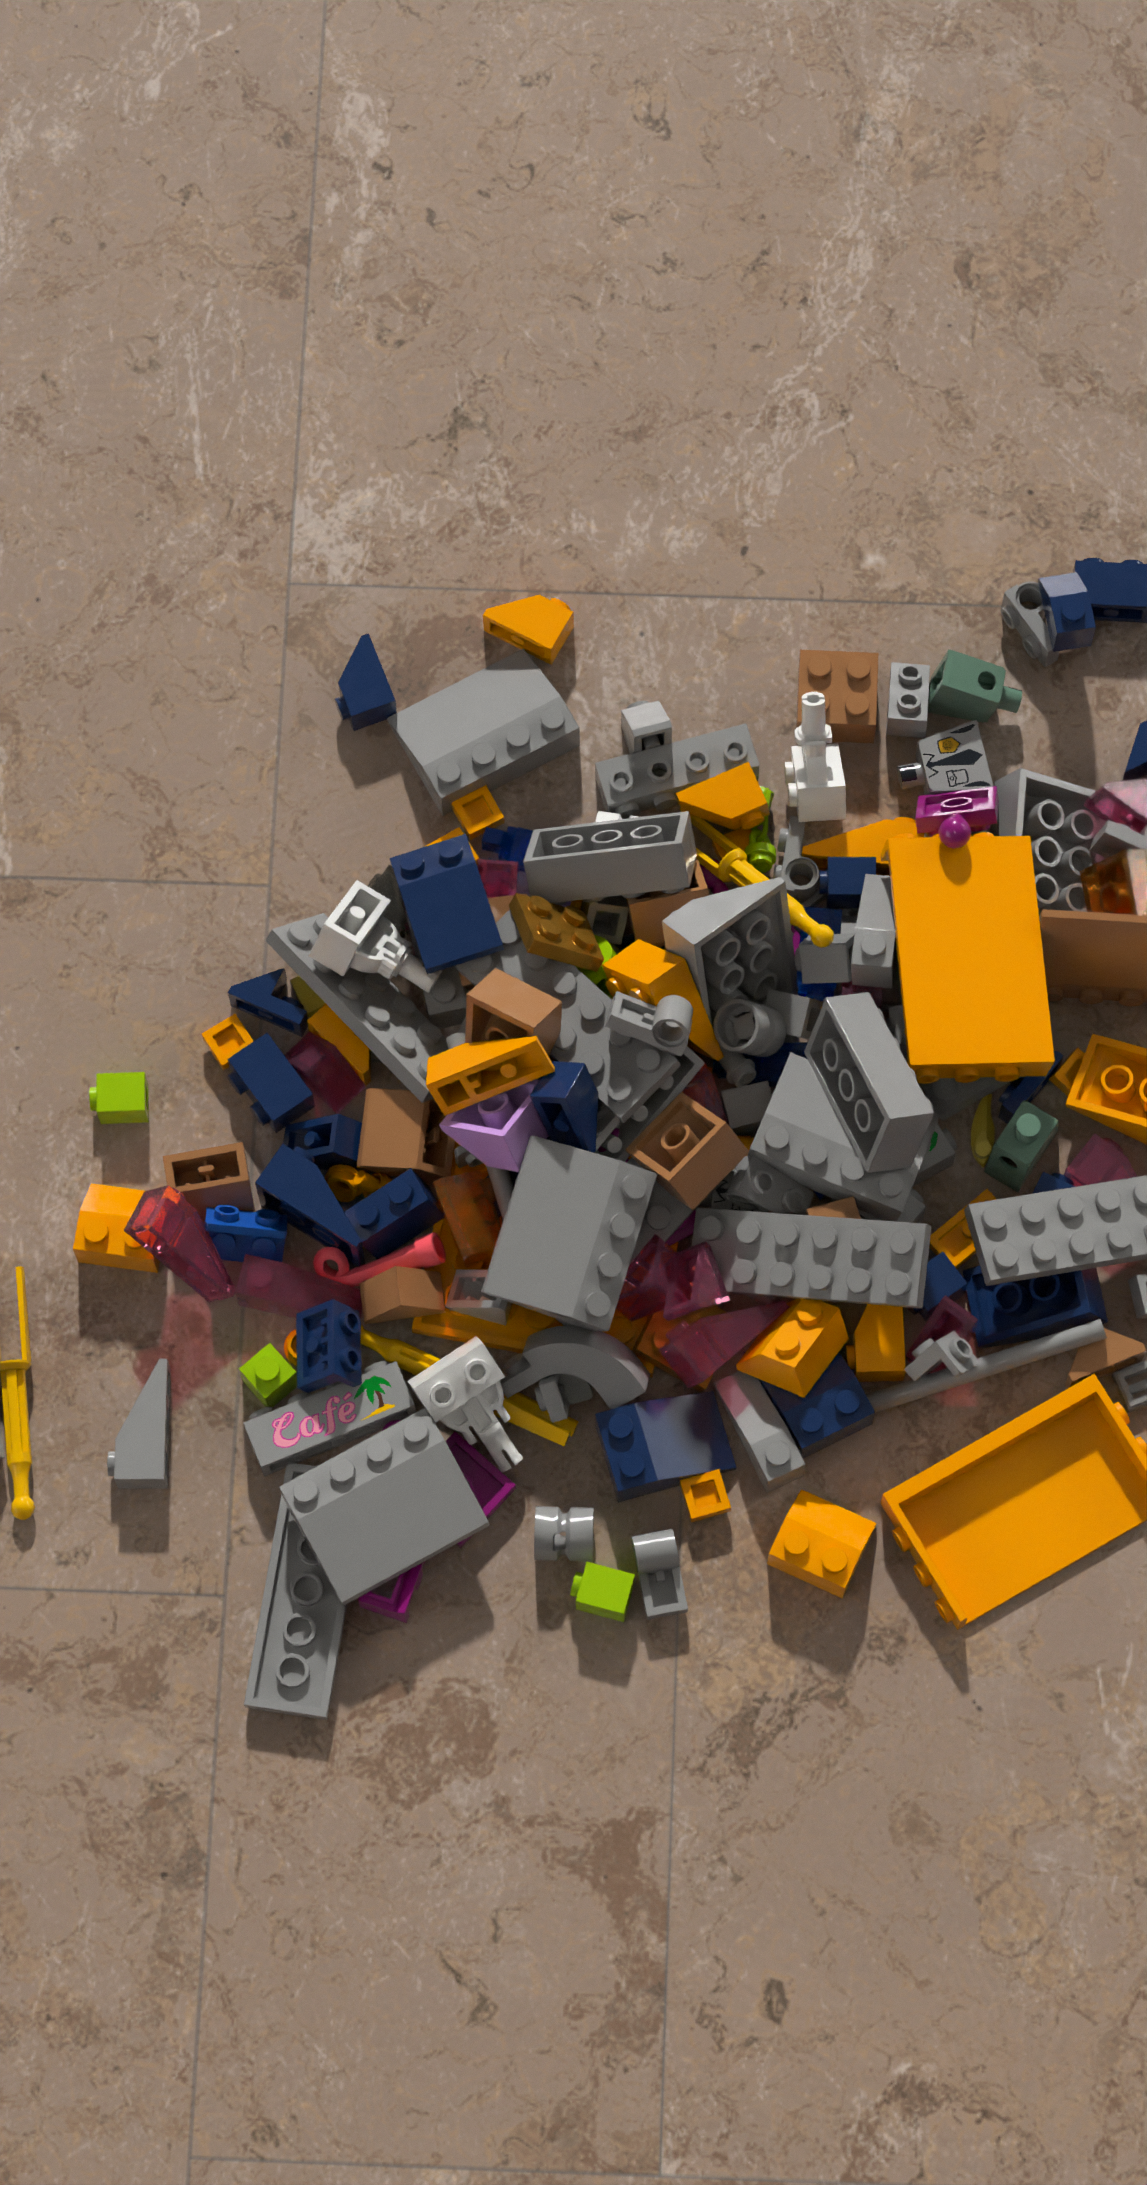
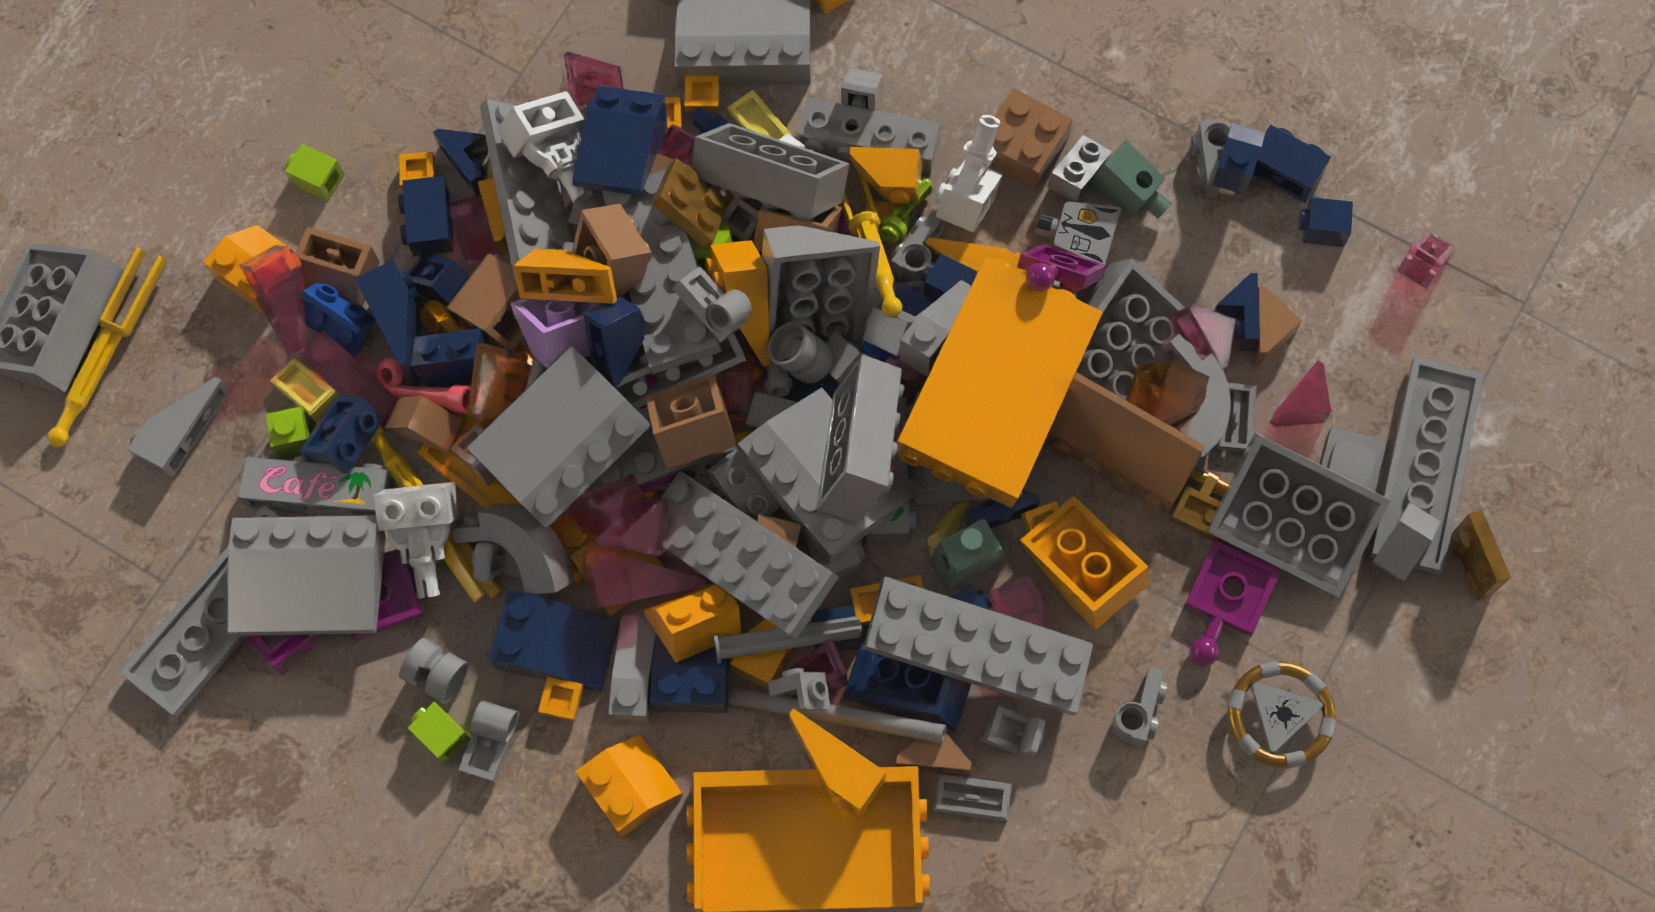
camera: 30 degrees right, 0 degrees up
(253, 1324) = (304, 388): none -> light yellow tile
(355, 855) = (586, 74): none -> clear pink slope
(545, 809) = (755, 115): none -> light yellow tile
(896, 1319) = (778, 639): none -> light grey axle
(1024, 1412) = (844, 772): none -> light orange slope

